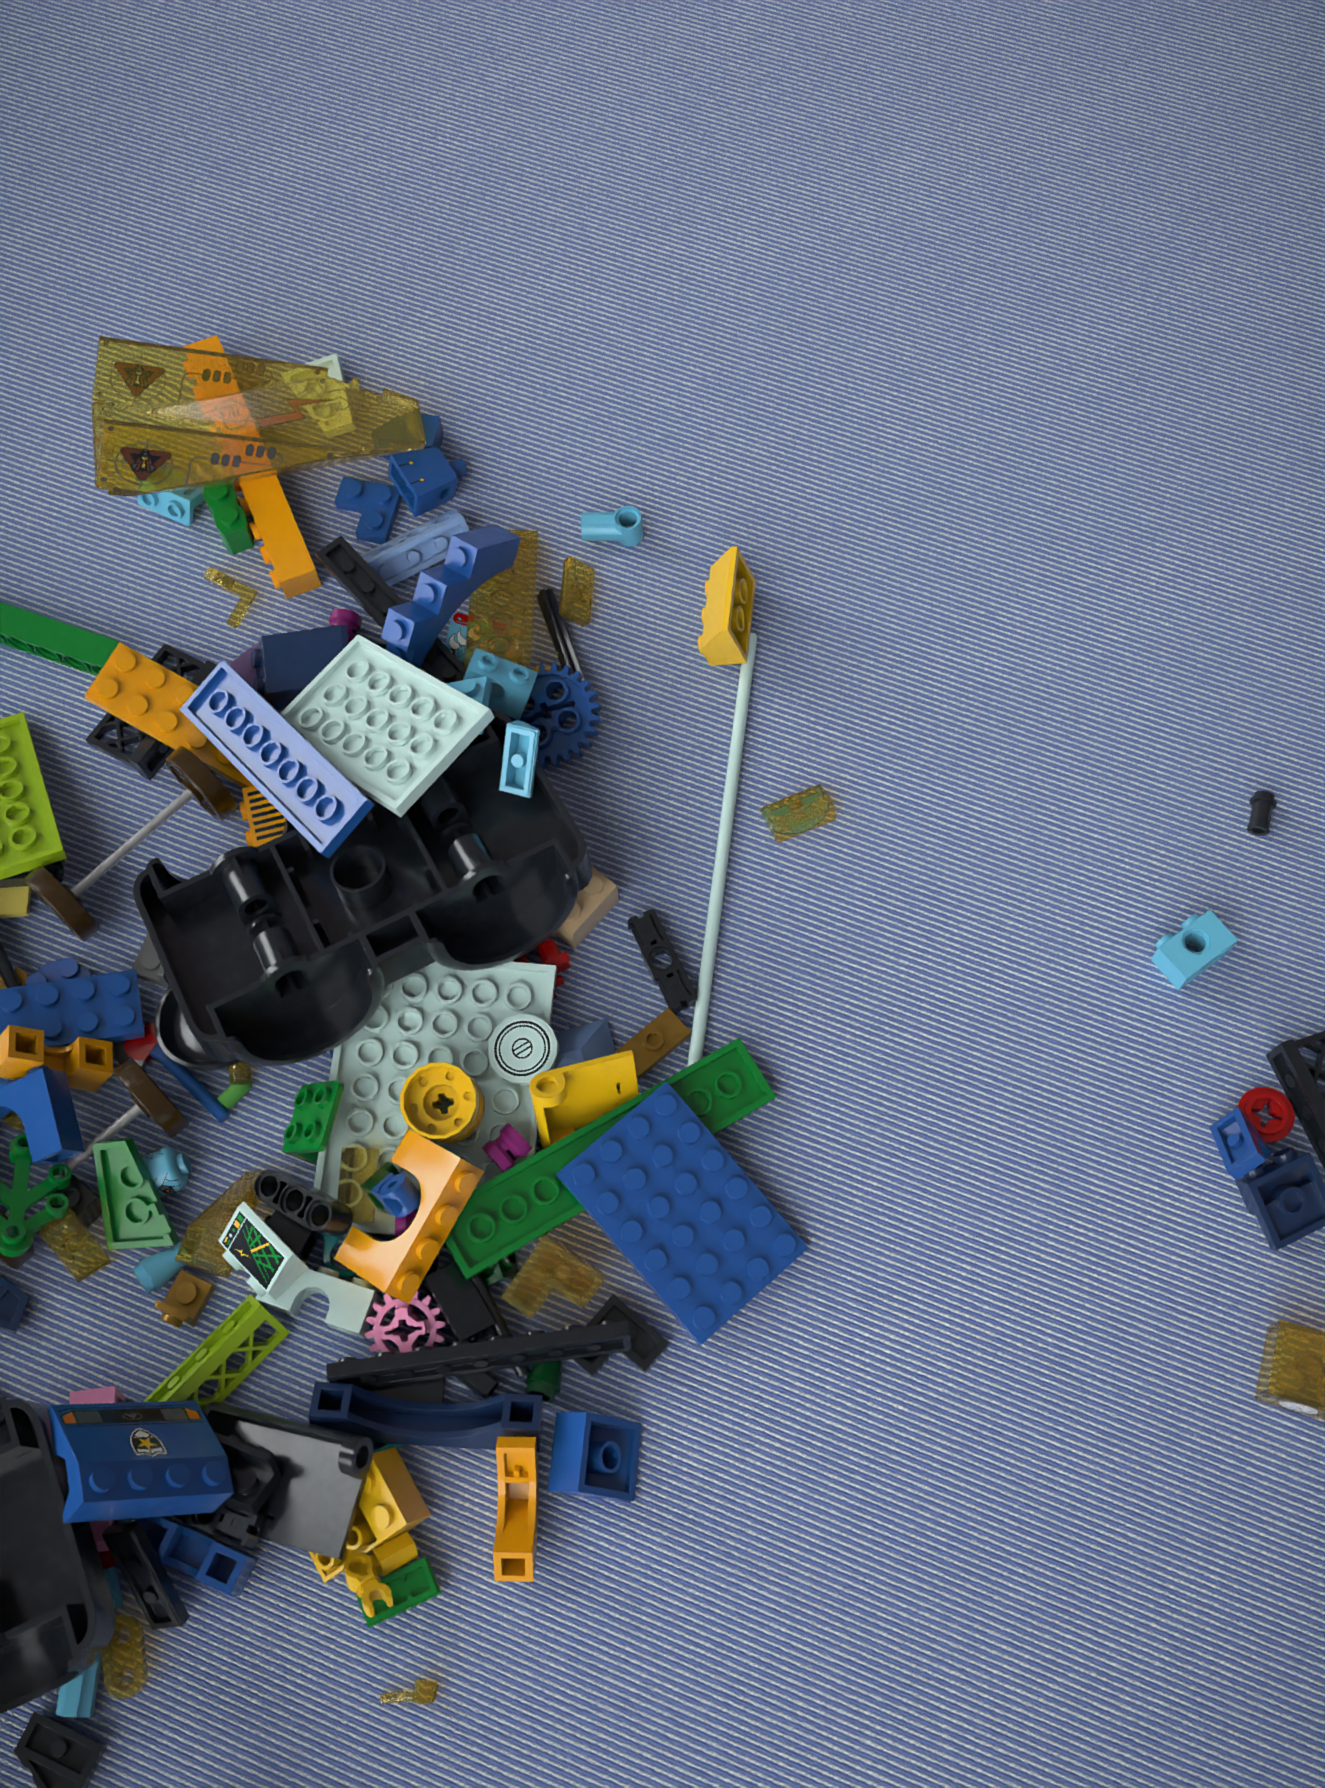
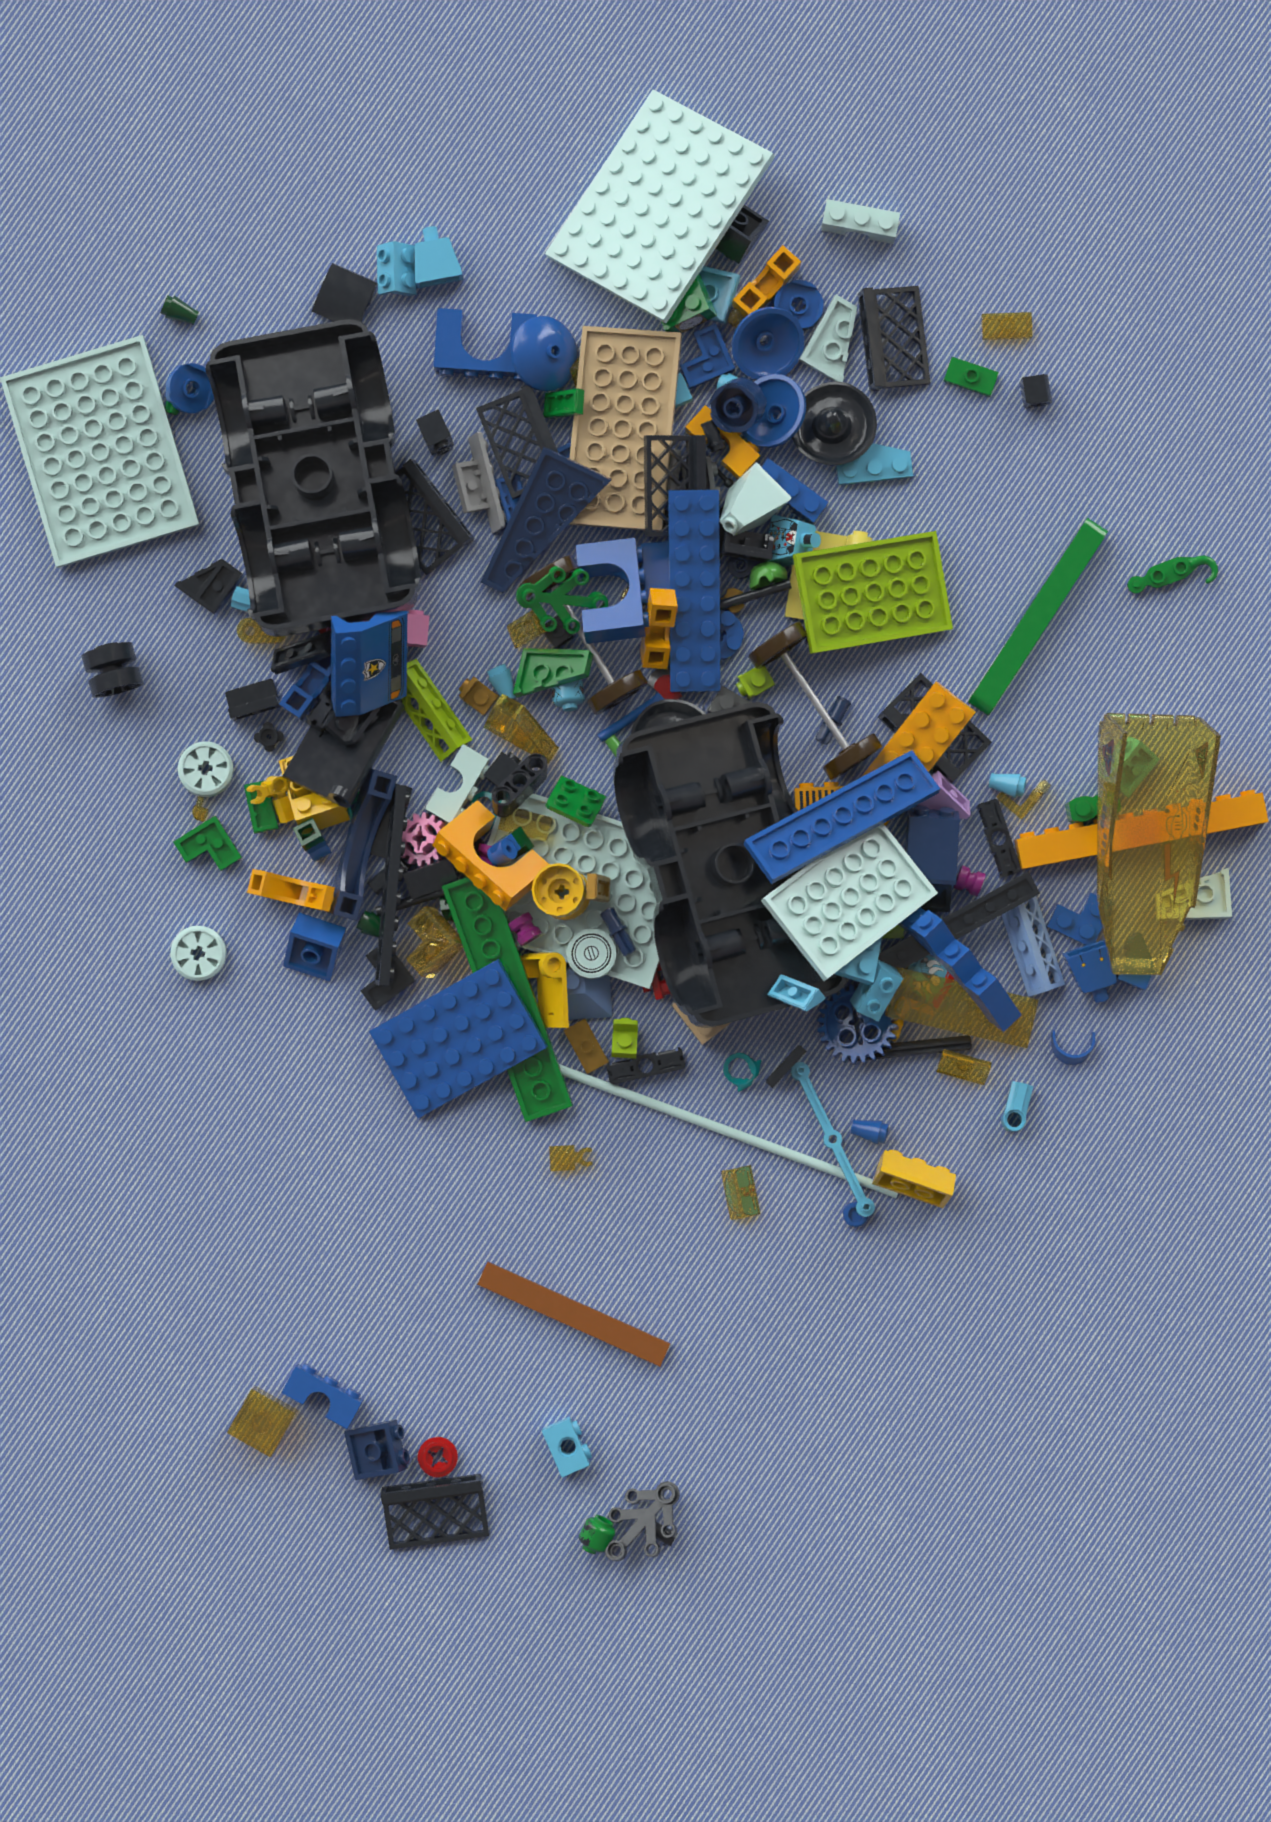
camera: 105 degrees right, 20 degrees up
(121, 934) = (754, 682): none -> lime bracket
(168, 830) = (836, 713): none -> dark blue axle
(214, 612) = (1008, 783): none -> medium azure cone
(235, 1647) = (252, 699): none -> black panel
(260, 1252) = (487, 753): slope -> none
(264, 619) = (994, 821): none -> black piece
(278, 1610) = (261, 737): none -> black plate
(328, 1692) = (215, 780): none -> light aqua wheel
(427, 1053) = (598, 888): none -> pearl gold plate
(436, 1491) = (313, 842): none -> dark green leg
(459, 1667) = (212, 838): none -> green plate
(485, 1019) = (618, 931): none -> dark blue axle
(539, 492) = (1068, 1058): none -> blue helmet
(622, 789) = (785, 1066): none -> black tile
(623, 1657) = (190, 940): none -> light aqua wheel
(627, 774) = (864, 1205): none -> medium azure piece
(631, 830) = (753, 1065): none -> teal piece
(631, 992) = (624, 1038): none -> lime bracket
(680, 676) = (871, 1130): none -> blue cone
(789, 676) = (851, 1217): none -> blue tile
(811, 1036) = (564, 1157): none -> clear yellow plate
(1015, 985) = (573, 1313): none -> dark orange tile
(1228, 1321) = (343, 1403): none -> blue arch
(1239, 1143) = (418, 1429): blue slope -> none
(1251, 830) = (646, 1518): none -> plant
(1293, 886) = (596, 1534): none -> green head

